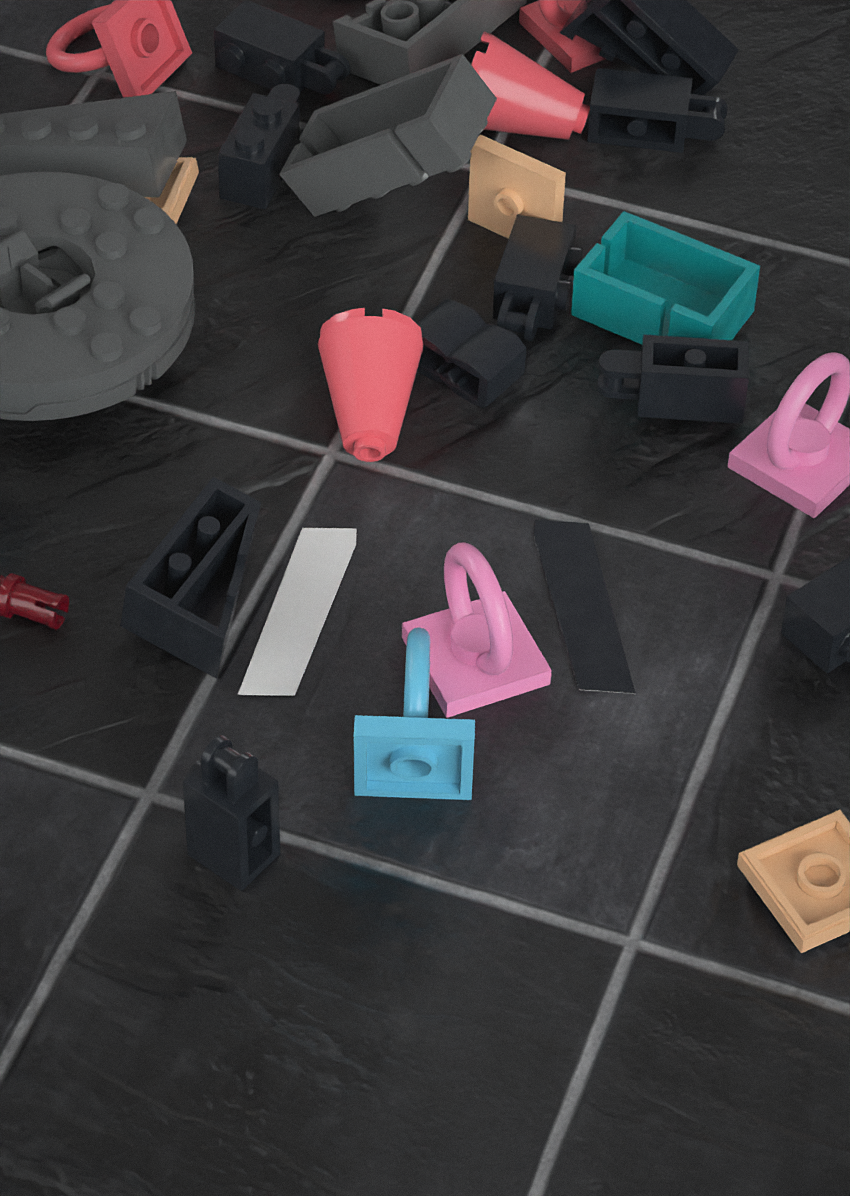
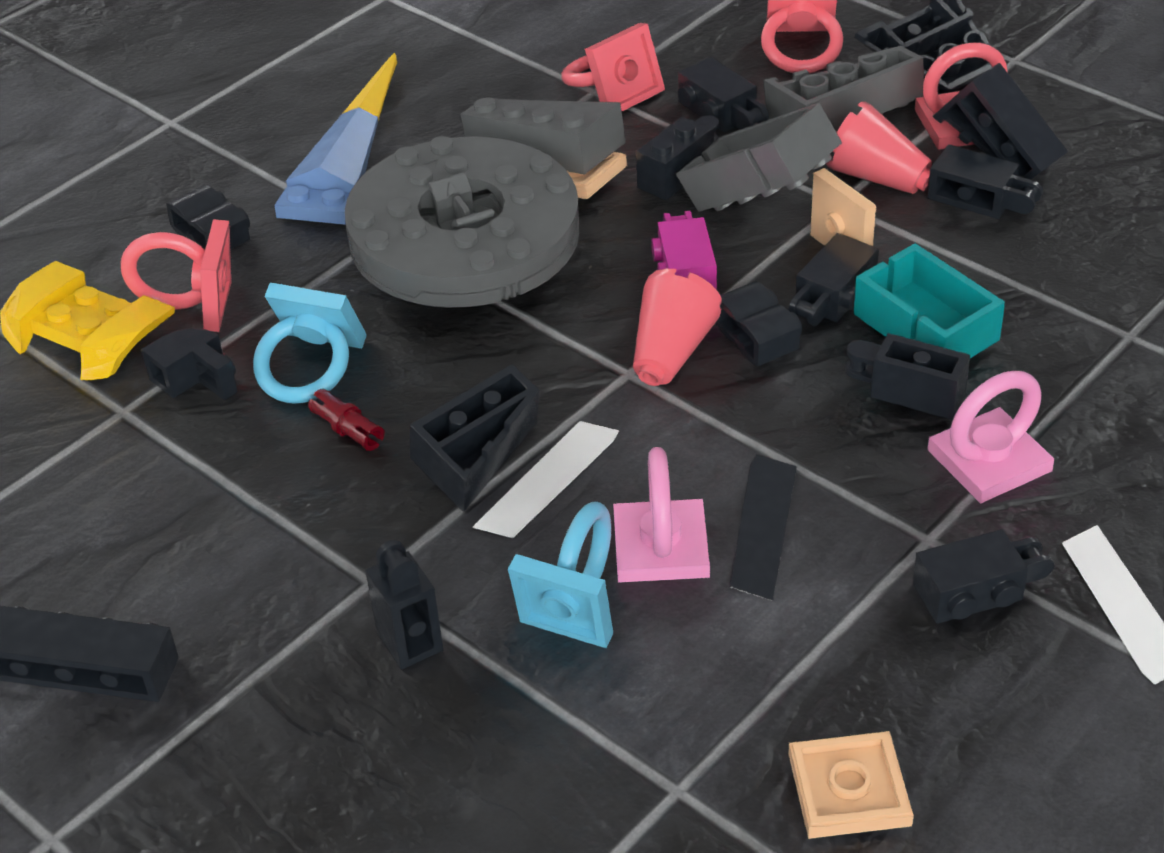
camera: 25 degrees right, 5 degrees down
(333, 274) = (685, 246): none -> dark pink brick

